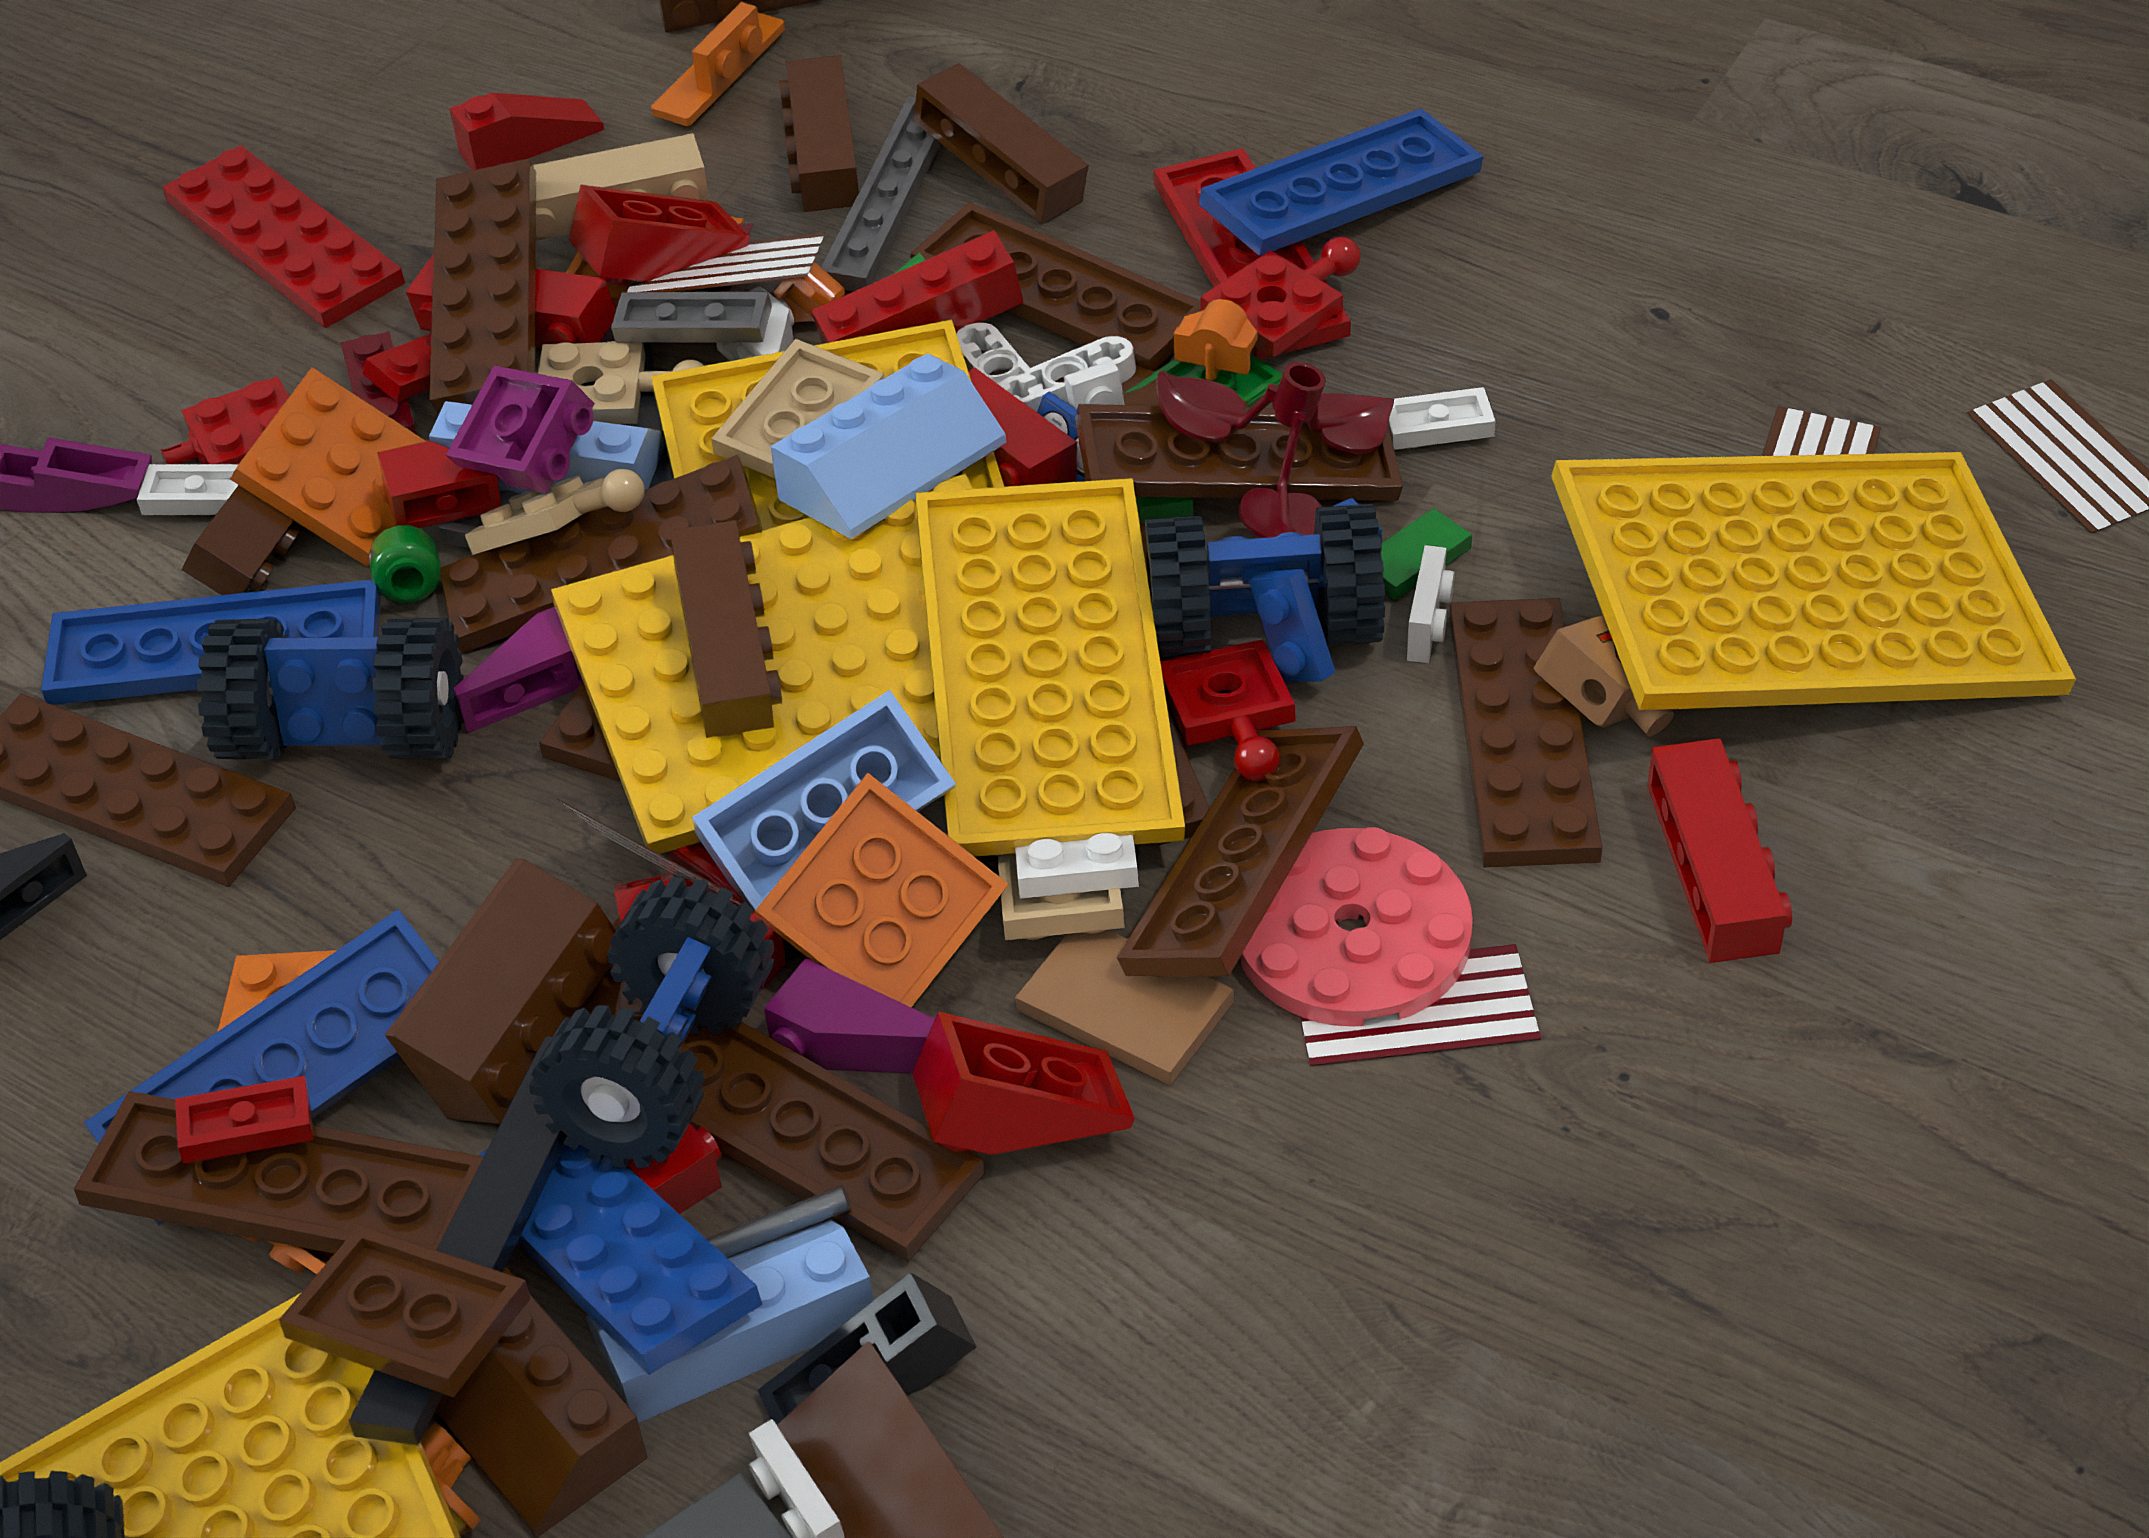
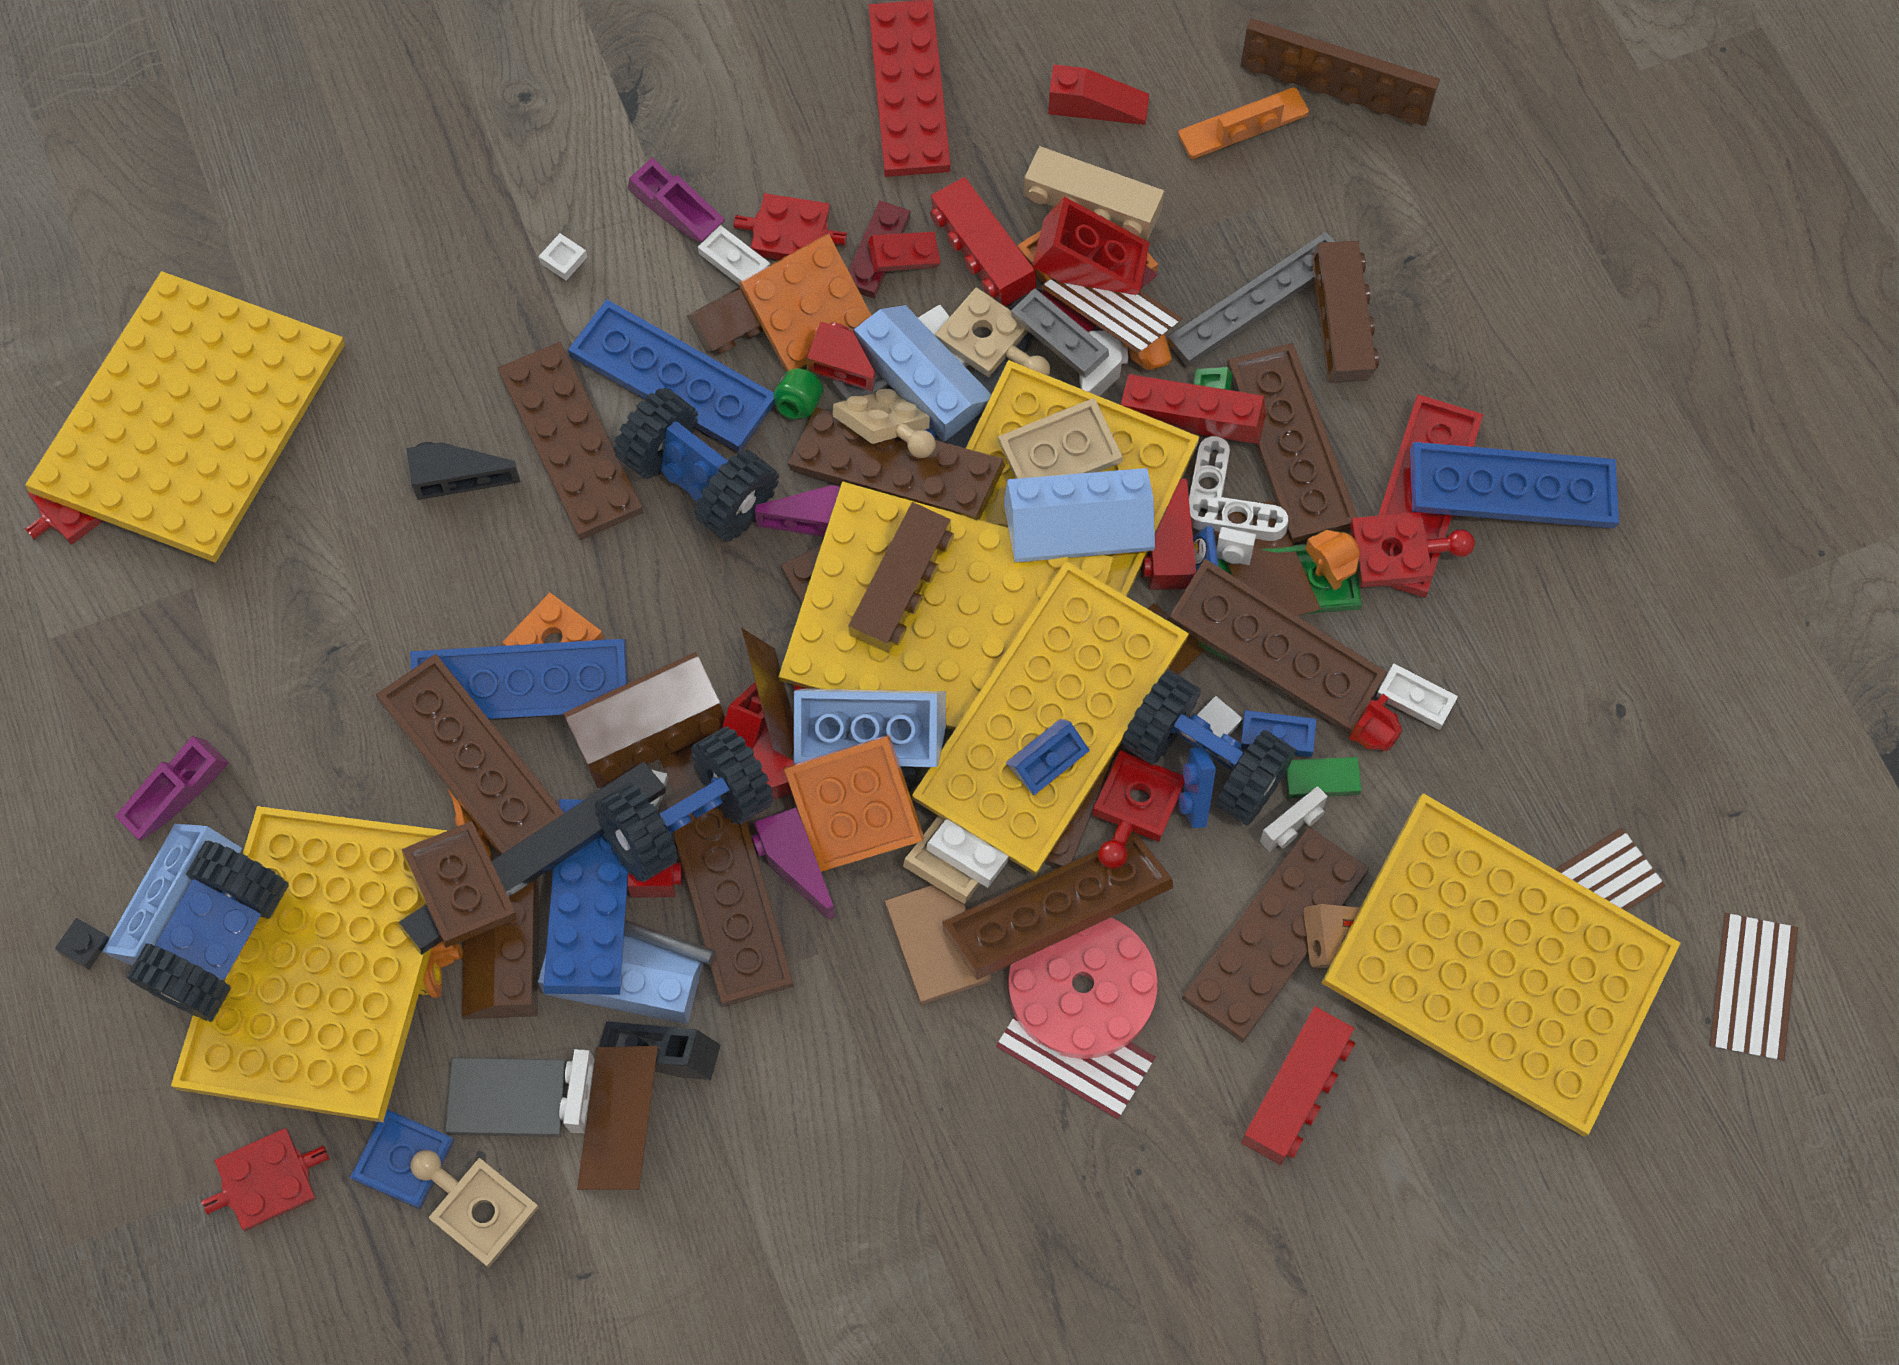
camera: 35 degrees right, 20 degrees up
(243, 1119) = (469, 715): red plate -> none
(482, 279) = (968, 226): reddish brown plate -> none
(523, 428) = (895, 368): magenta plate -> none
(819, 133) = (1255, 224): reddish brown brick -> none
(1014, 1088) = (837, 959): red slope -> none
(1083, 693) = (1048, 756): none -> blue slope
(1344, 421) = (1352, 671): dark red plant -> none
(1428, 462) = (1377, 727): none -> red piece

